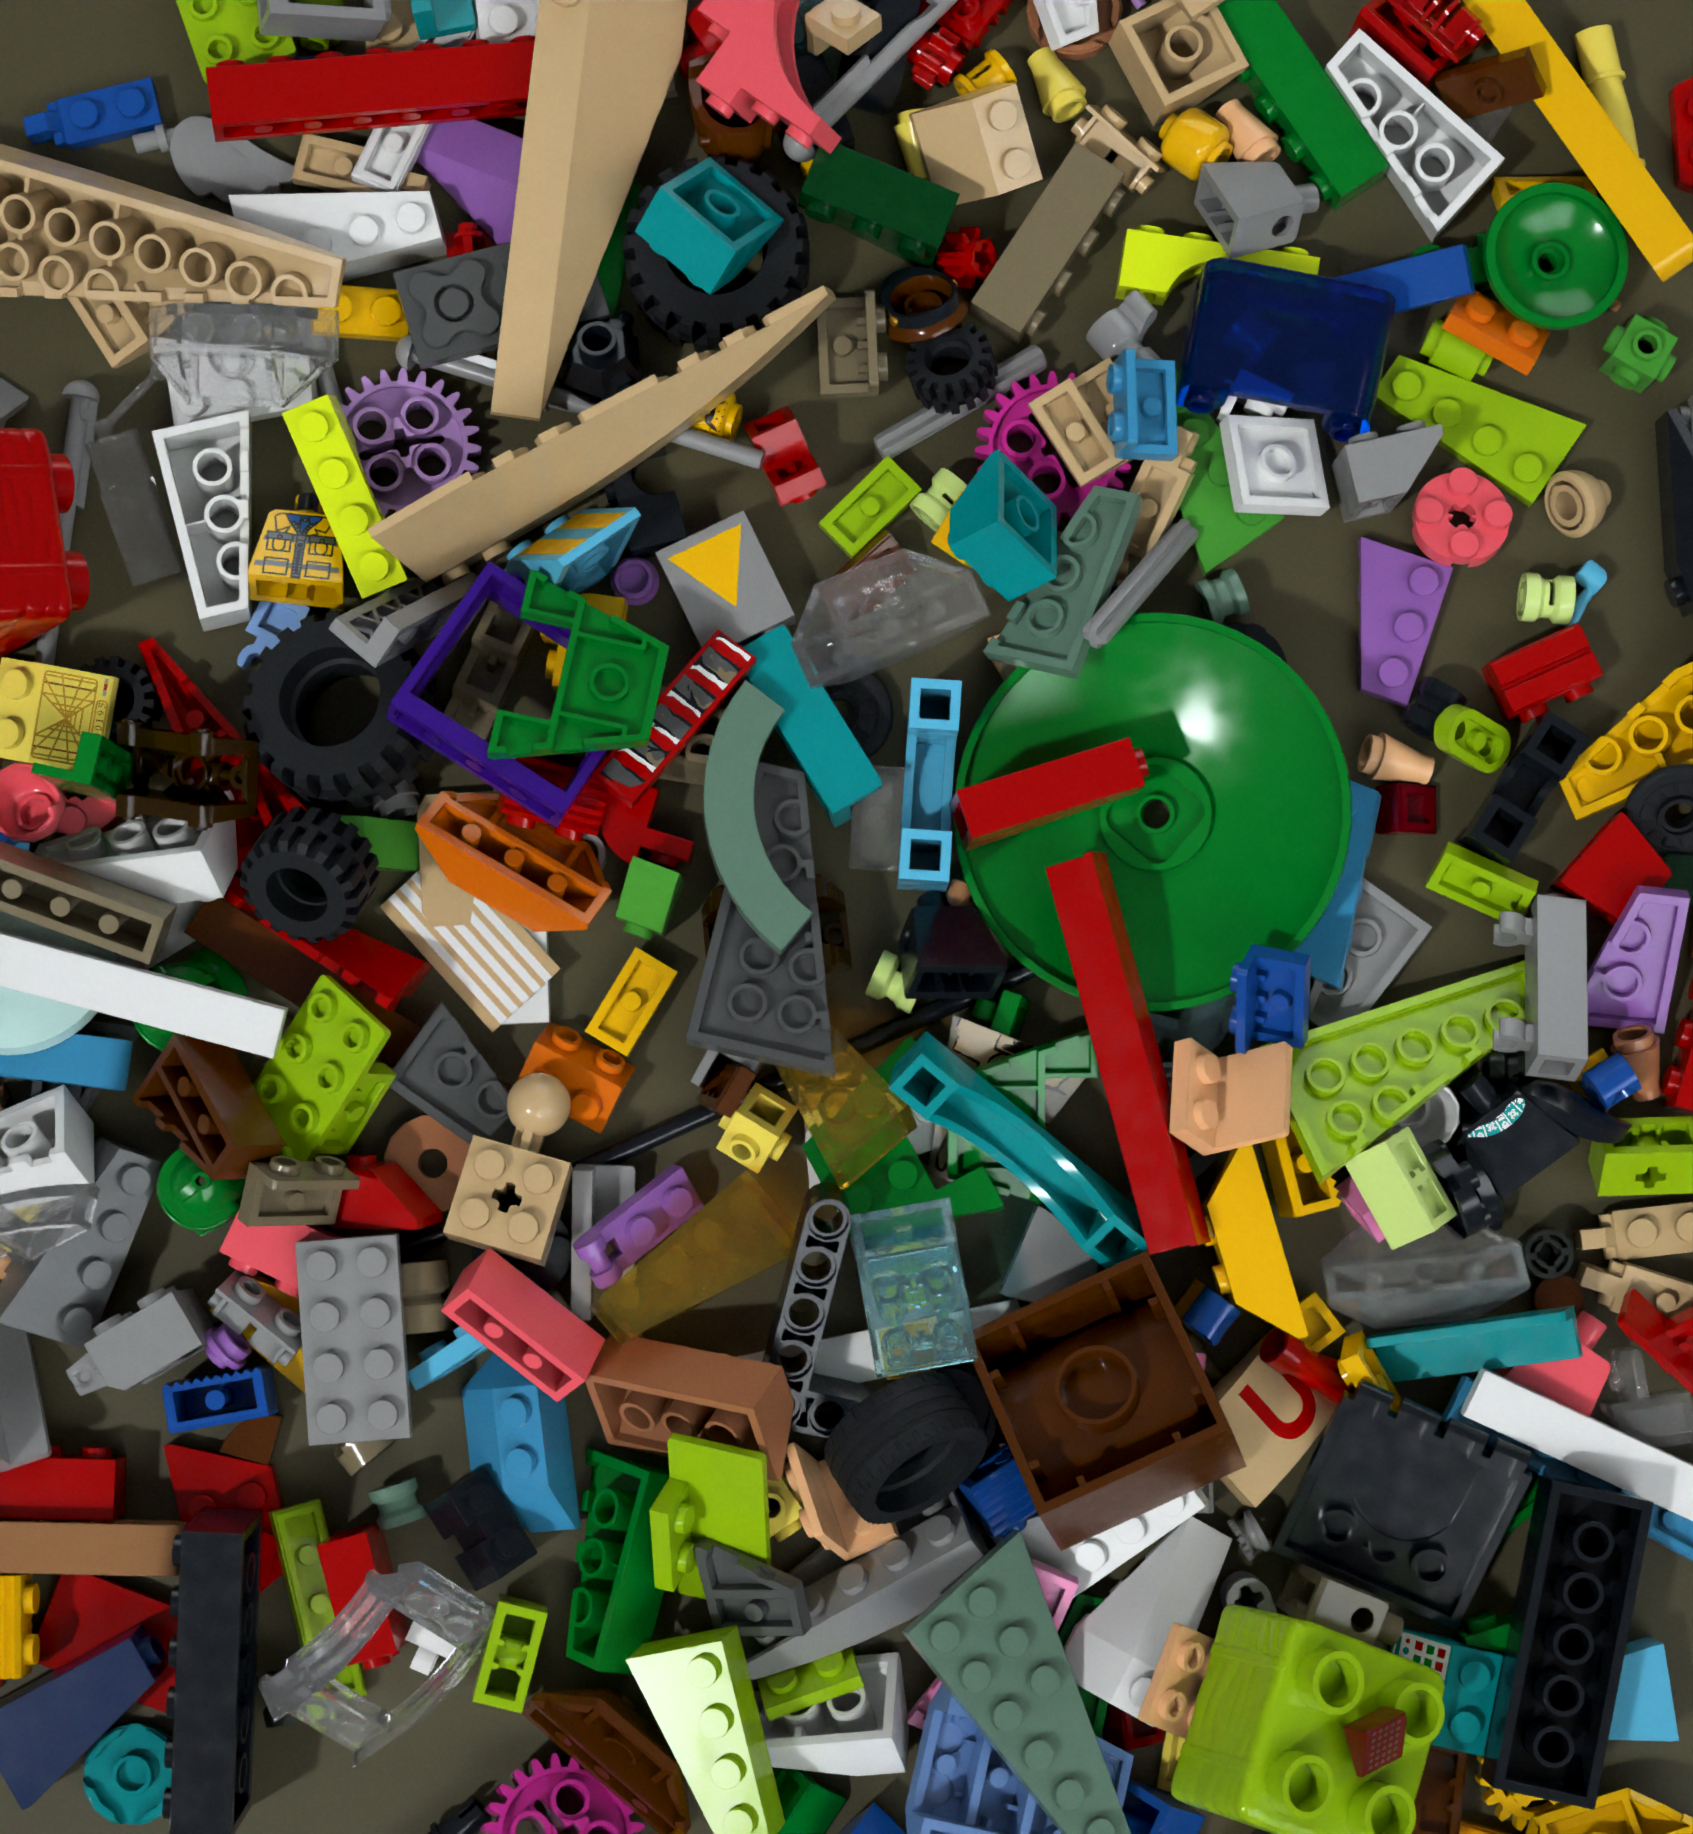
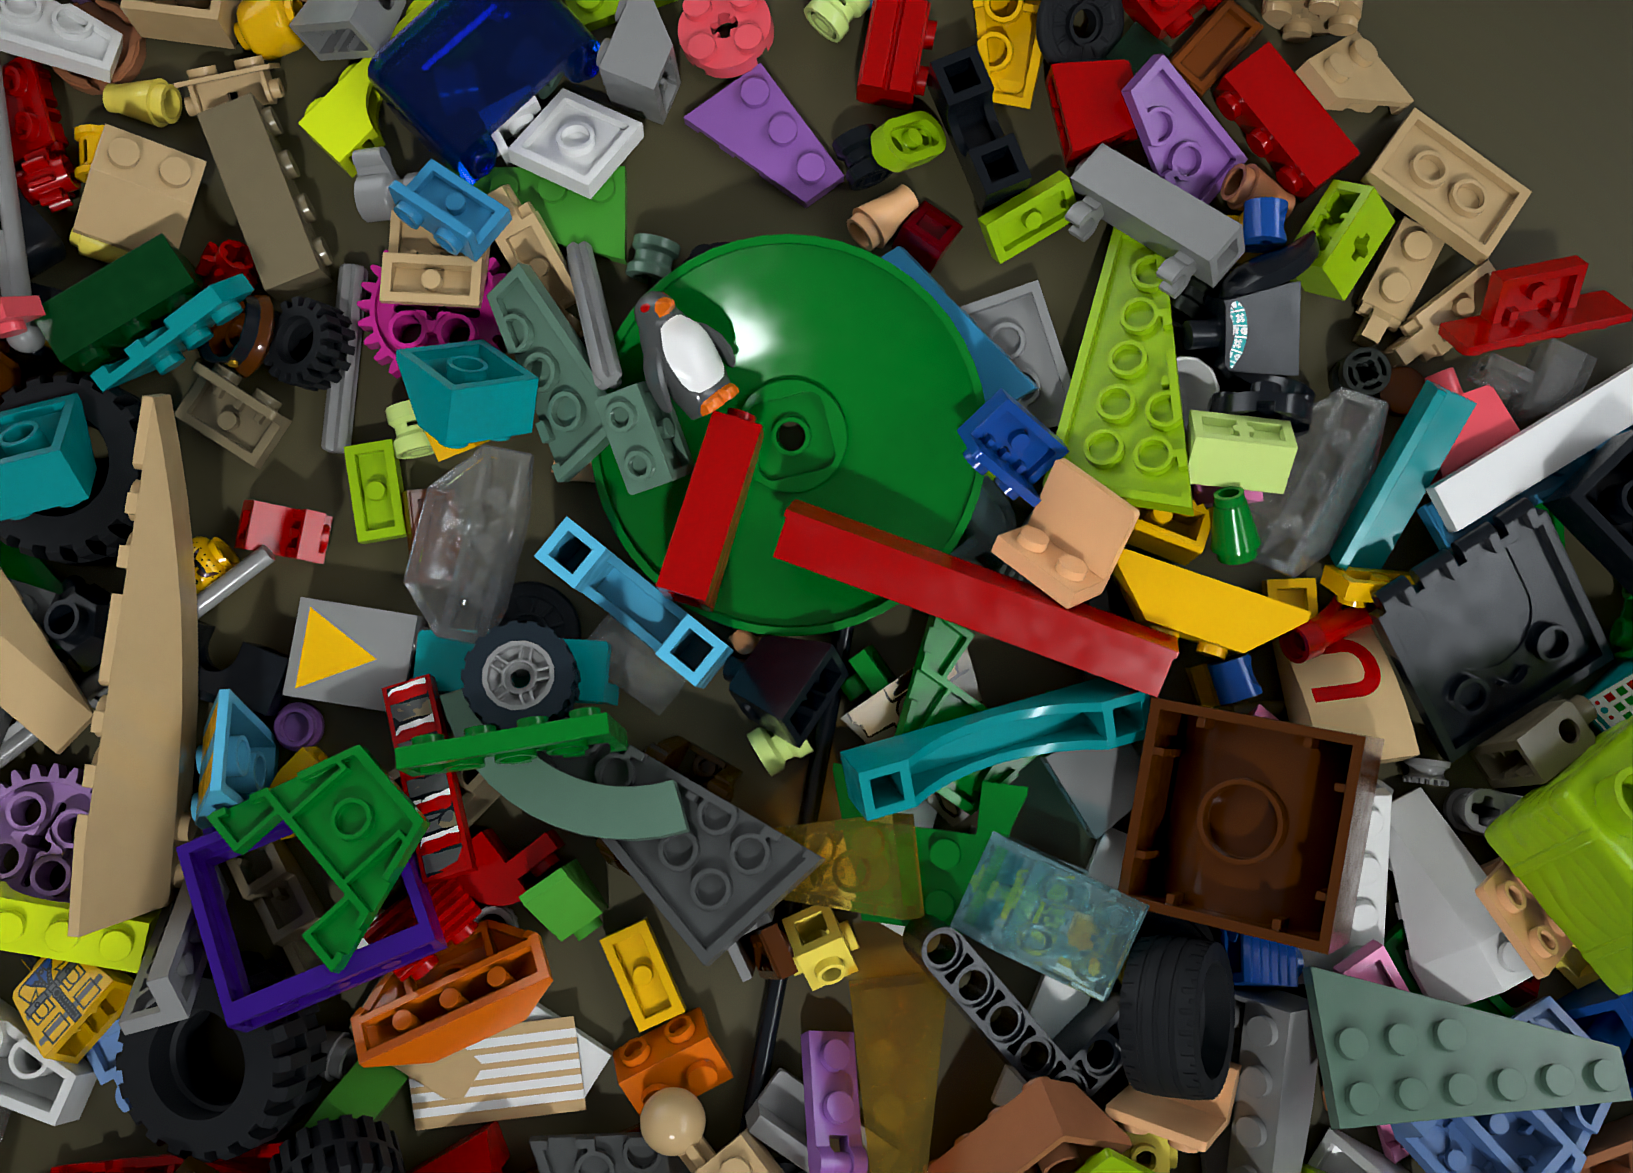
camera: 55 degrees left, 0 degrees up
(753, 768) = (516, 745): none -> green wing
(824, 716) = (520, 651): none -> black wheel
(896, 267) = (183, 330): none -> teal wing
(1070, 696) = (644, 438): none -> sand green bracket
(1153, 683) = (682, 358): none -> animal
(1334, 1229) = (1233, 527): none -> green cone

